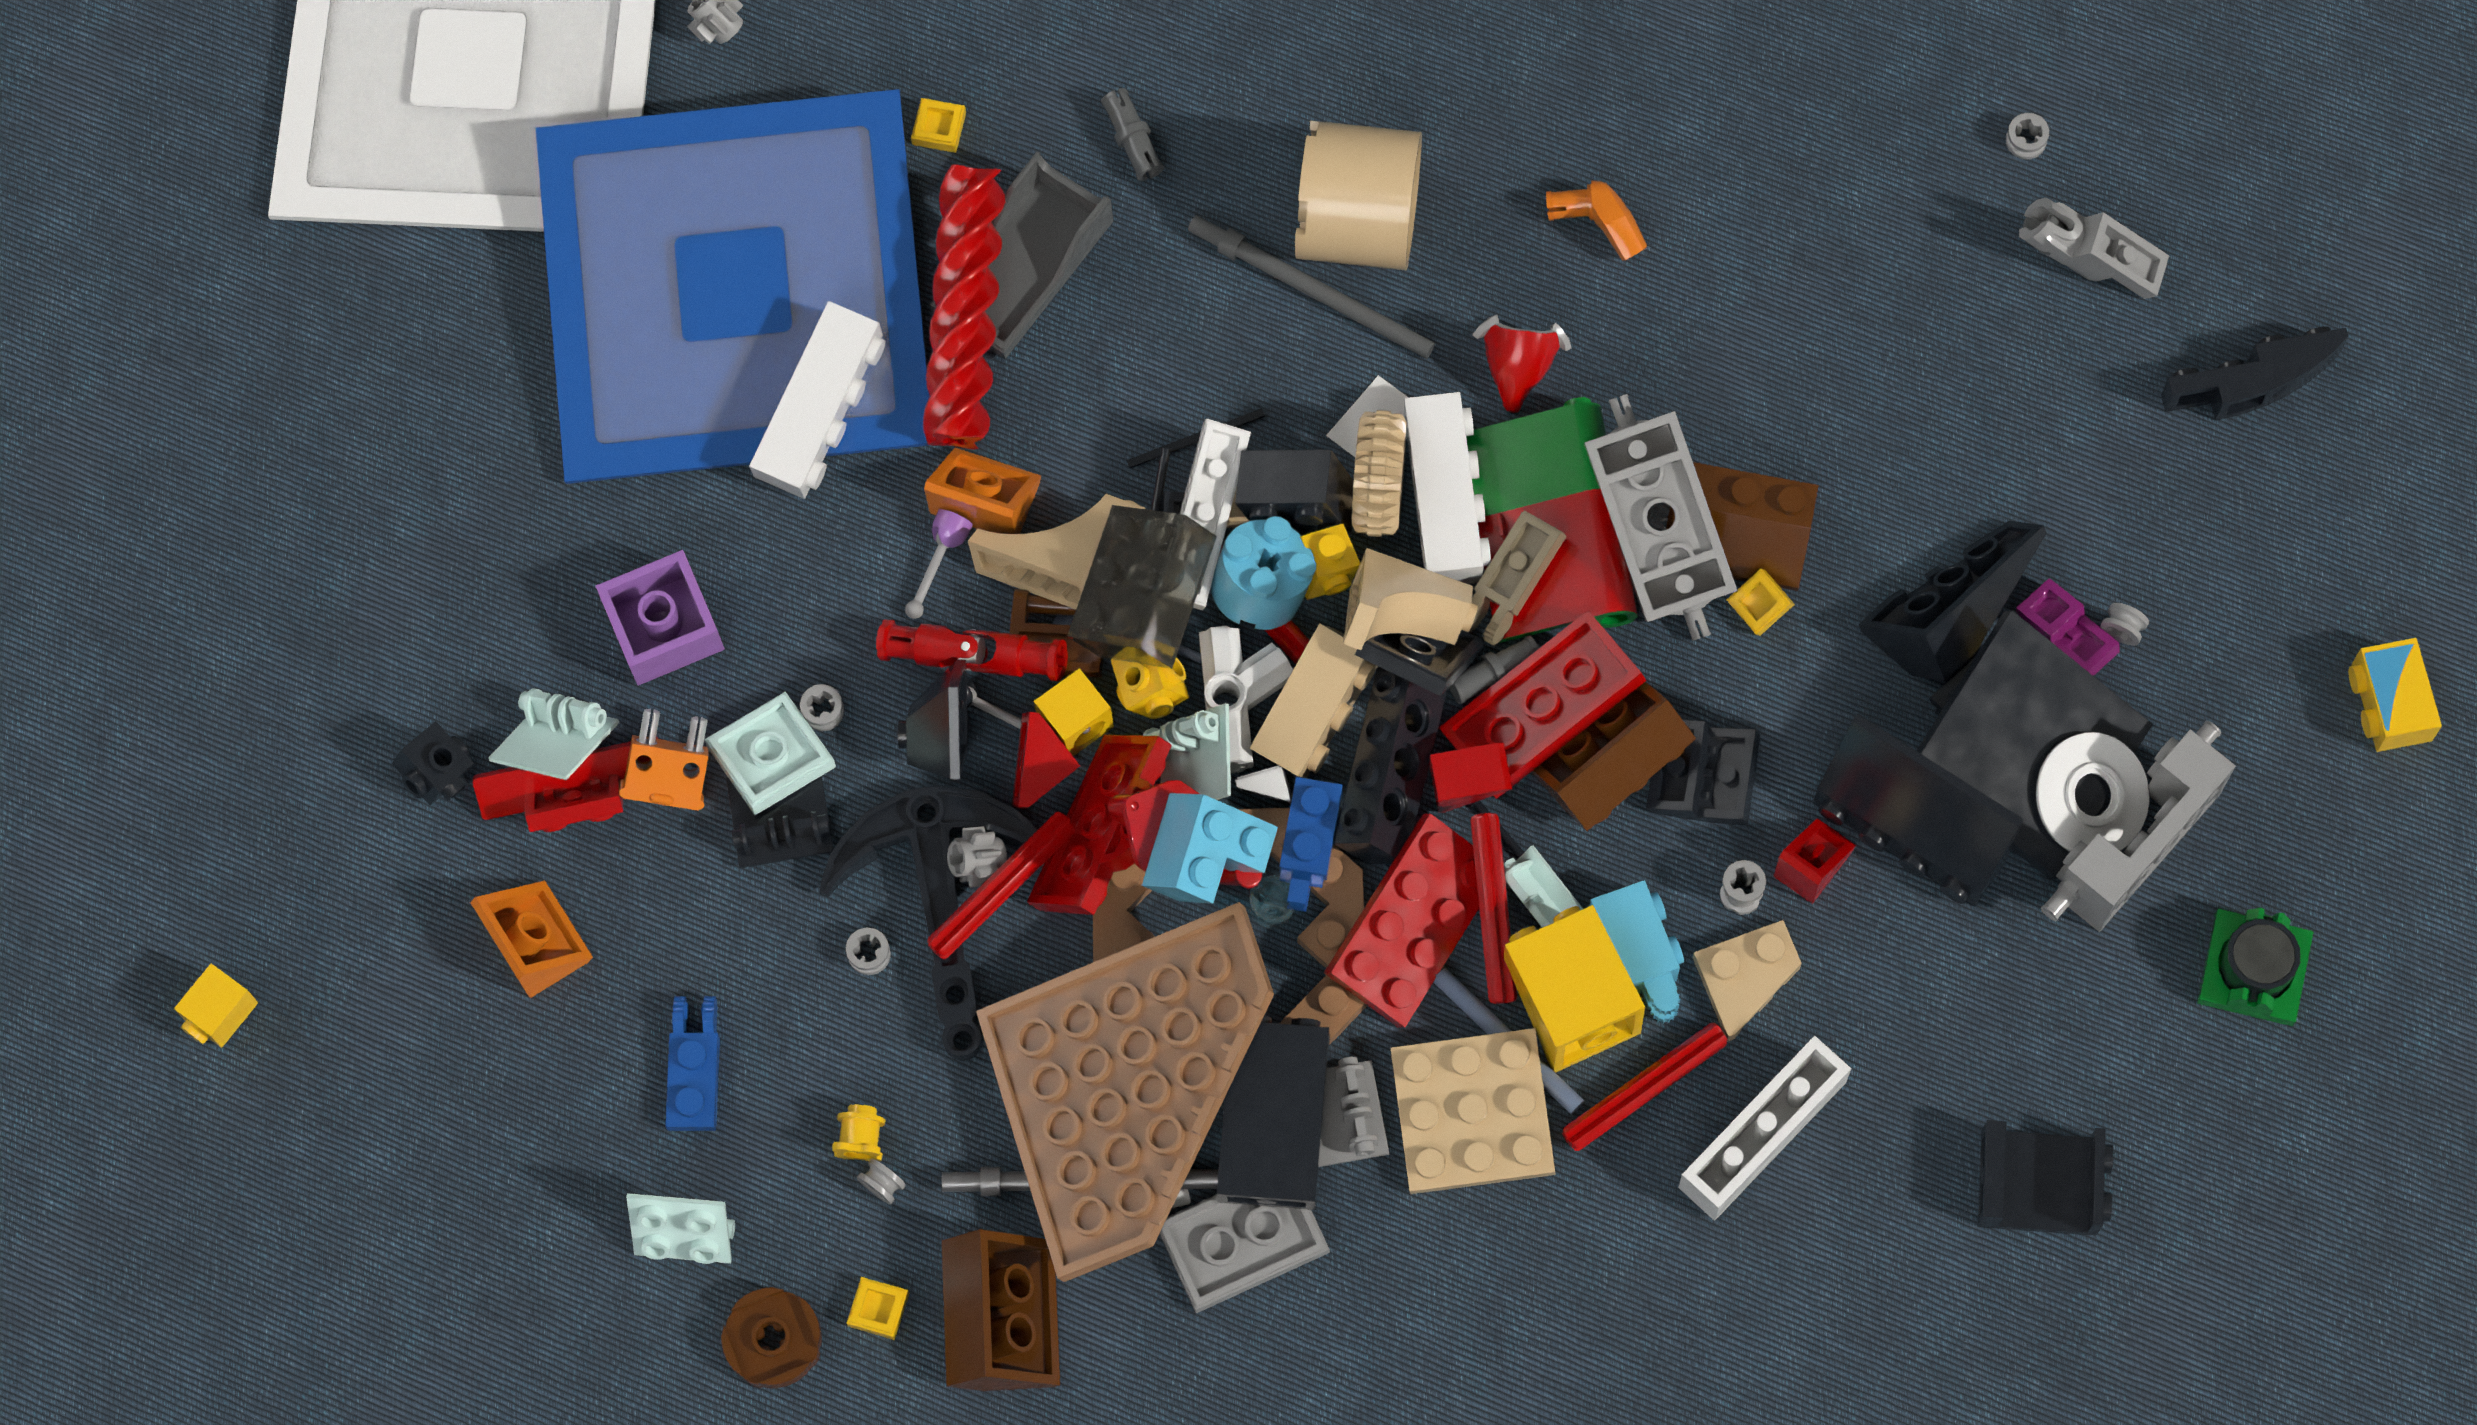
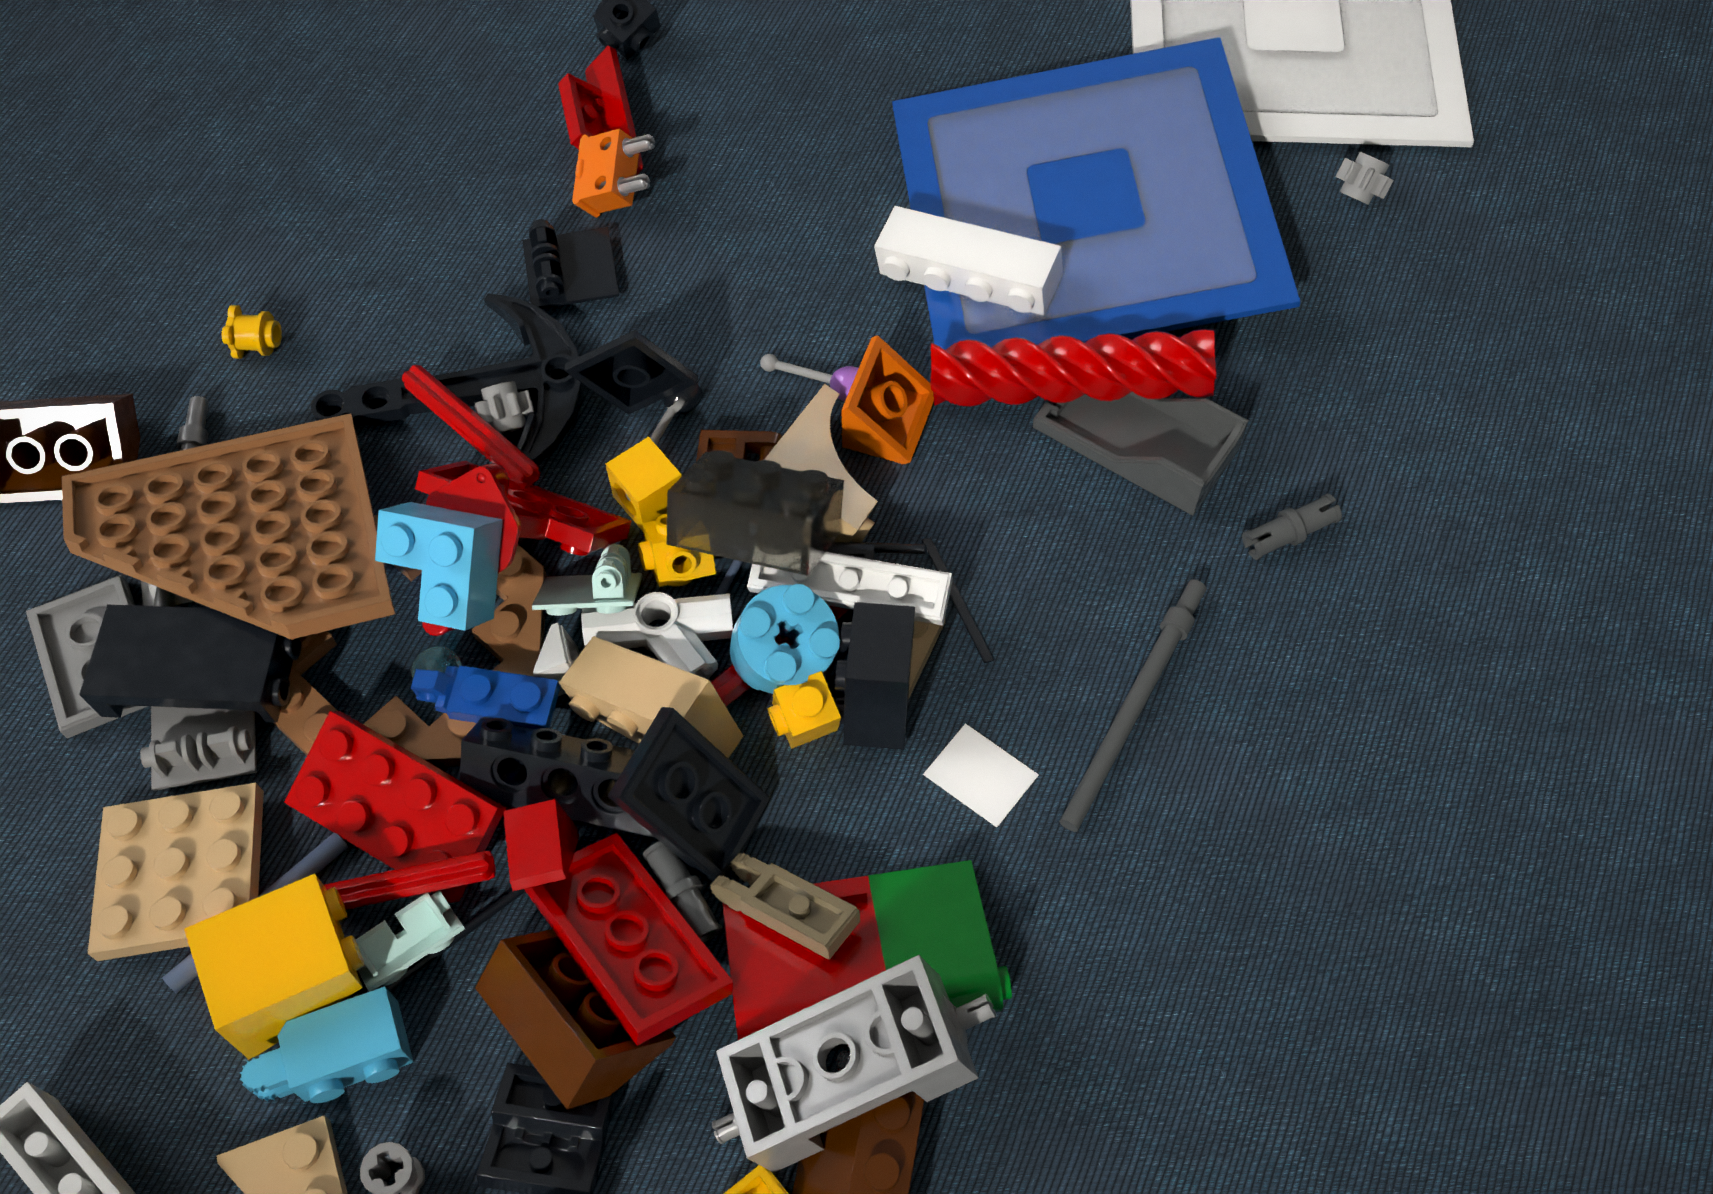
camera: 85 degrees right, 10 degrees down
(532, 934) = (468, 91): orange slope -> none
(554, 734) = (643, 95): light aqua hinge -> none
(660, 617) = (754, 161): medium lavender brick -> none
(680, 1228) = (187, 207): light aqua hinge -> none
(693, 1070) = (343, 217): blue hinge -> none
(746, 1326) = (99, 292): reddish brown plate -> none
(770, 753) = (626, 254): light aqua tile -> none
(817, 695) = (666, 284): light grey bush -> none
(878, 1308) = (94, 359): yellow tile -> none
(881, 1181) = (205, 351): light grey bush -> none
(882, 954) = (431, 326): light grey bush -> none
(938, 125) = (1280, 365): yellow tile -> none
(941, 647) = (713, 395): red piece -> none
(1040, 761) = (589, 451): red slope -> none
(1358, 195) = (1233, 722): tan brick -> none
(1379, 473) = (903, 756): tan gear -> none
(1405, 600) = (742, 764): tan arch -> none
(1444, 488) = (893, 831): white brick -> none
(1519, 357) = (1061, 912): red hat -> none
(1606, 210) = (1257, 1017): orange arm -> none
(1644, 1086) = (178, 1061): red axle -> none

